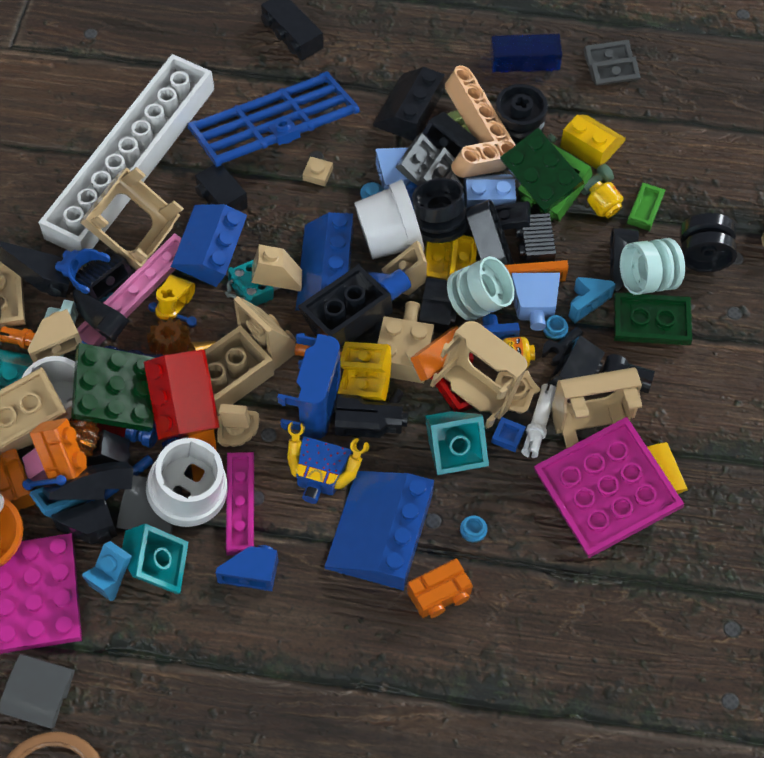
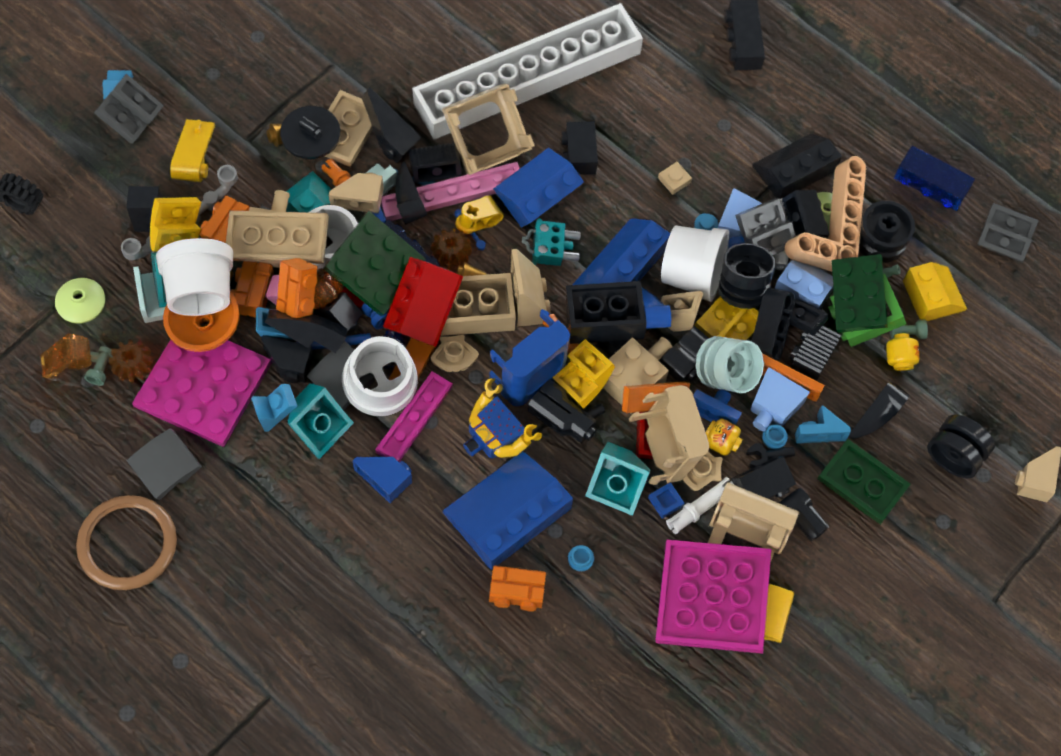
camera: 30 degrees right, 5 degrees up
(28, 484) = (282, 312): blue hinge -> none
(74, 260) = (416, 138): blue helmet -> none
(234, 416) = (454, 345): tan tile -> none
(276, 269) = (575, 243): tan slope -> none
(281, 129) = (667, 122): blue door -> none
(646, 206) = (937, 380): bright green tile -> none
(652, 266) = (893, 436): light aqua wheel -> none

